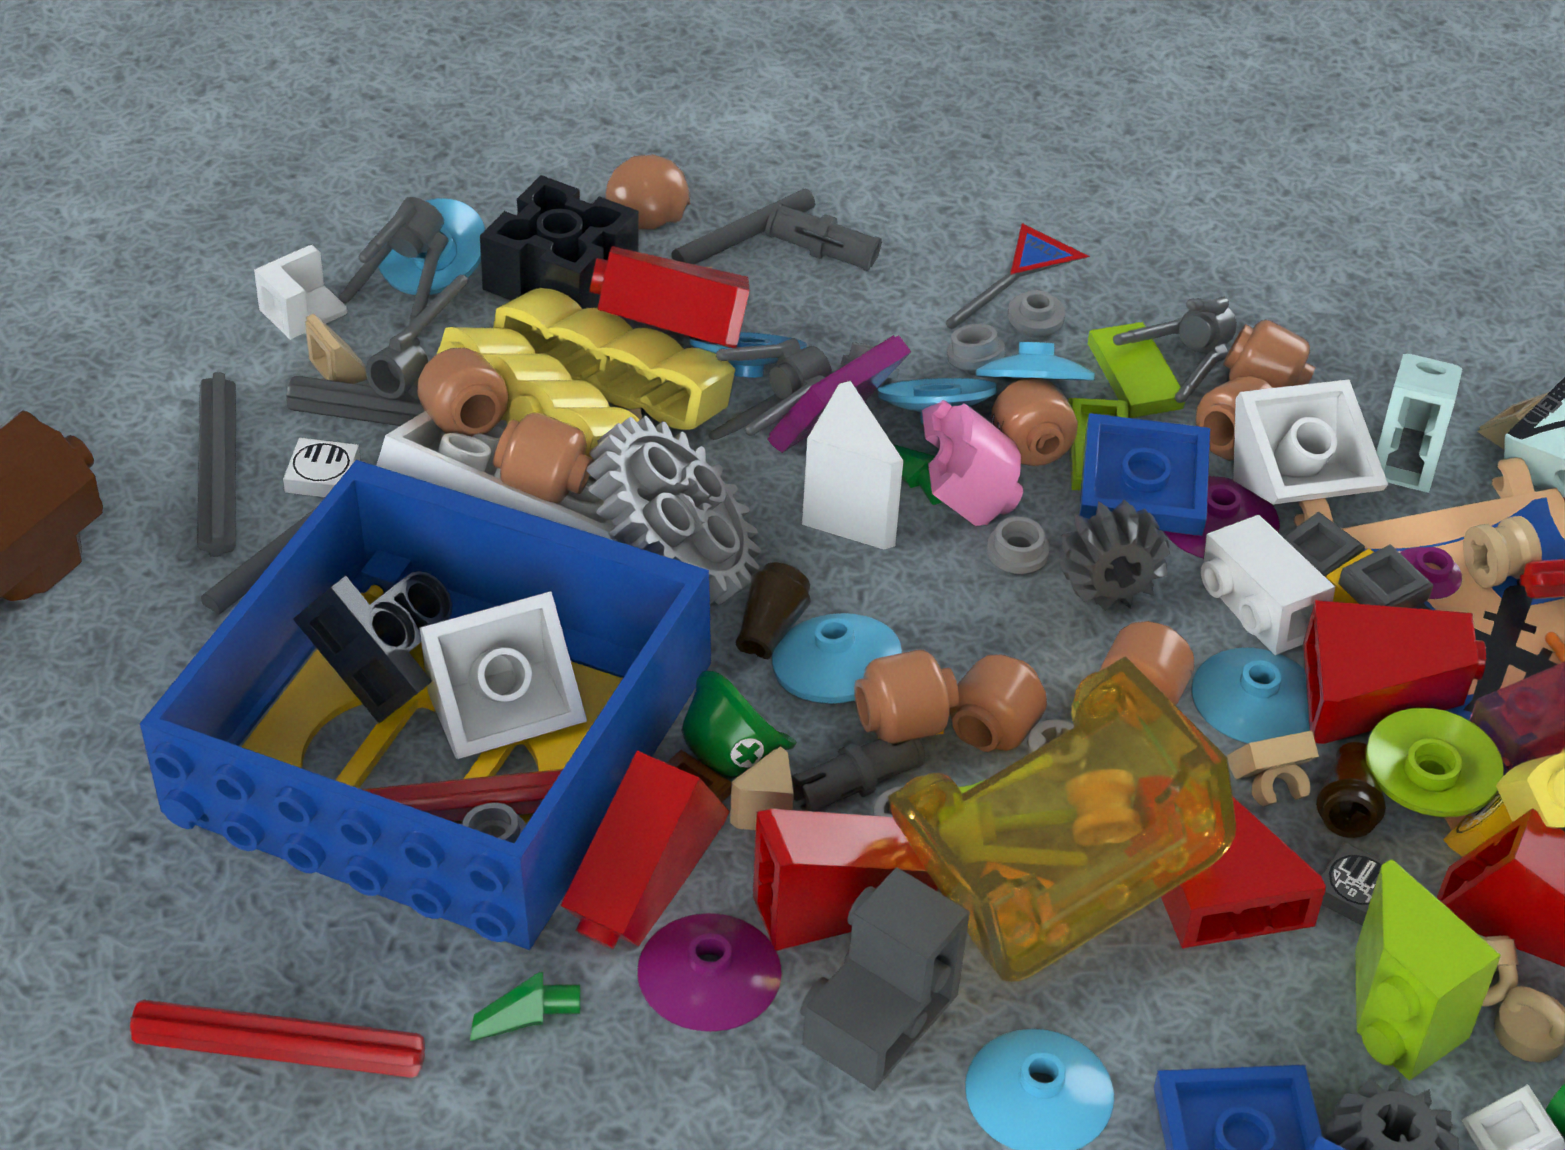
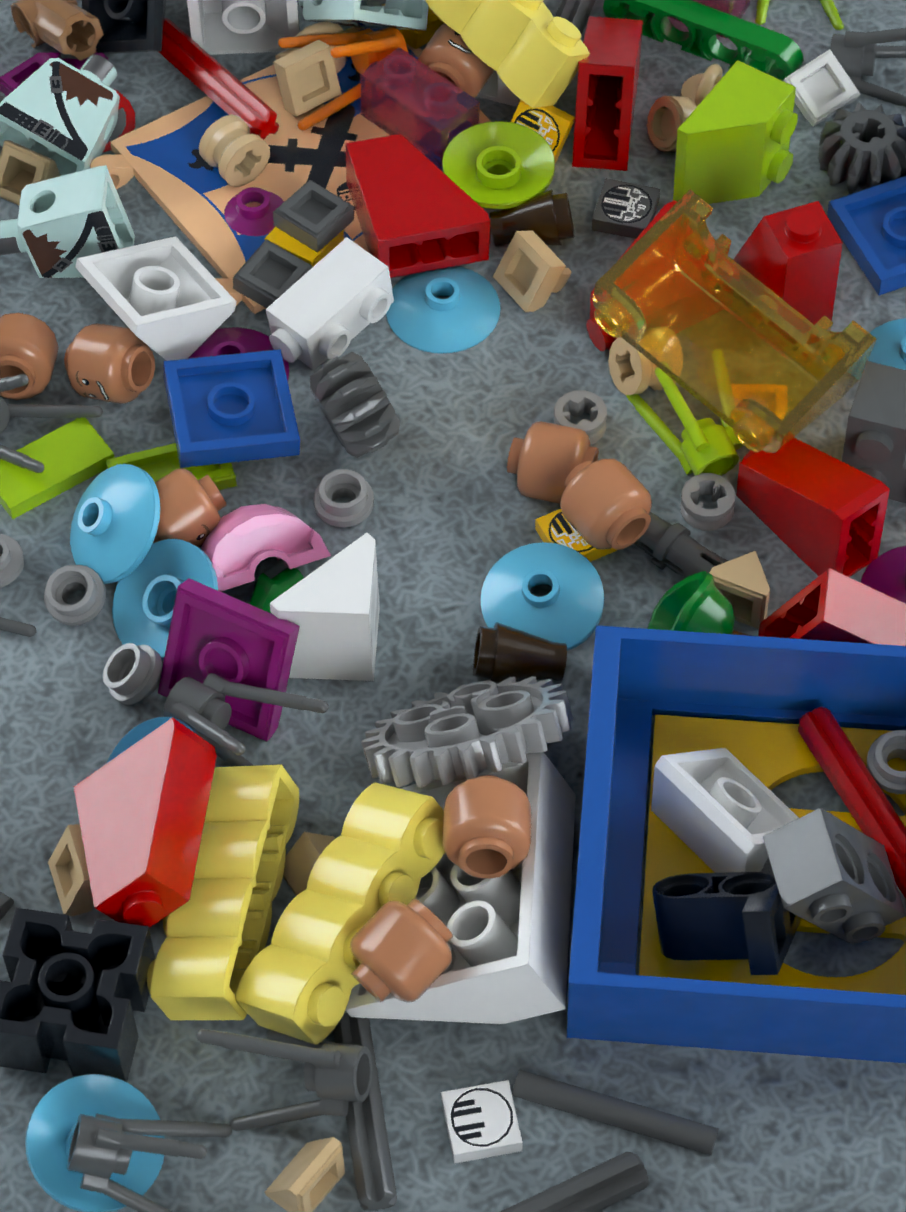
camera: 105 degrees left, 10 degrees up
(385, 704) = (834, 876): none -> dark grey brick
(1157, 653) = (472, 365): nougat head -> none
(1179, 953) = (796, 258): none -> red slope

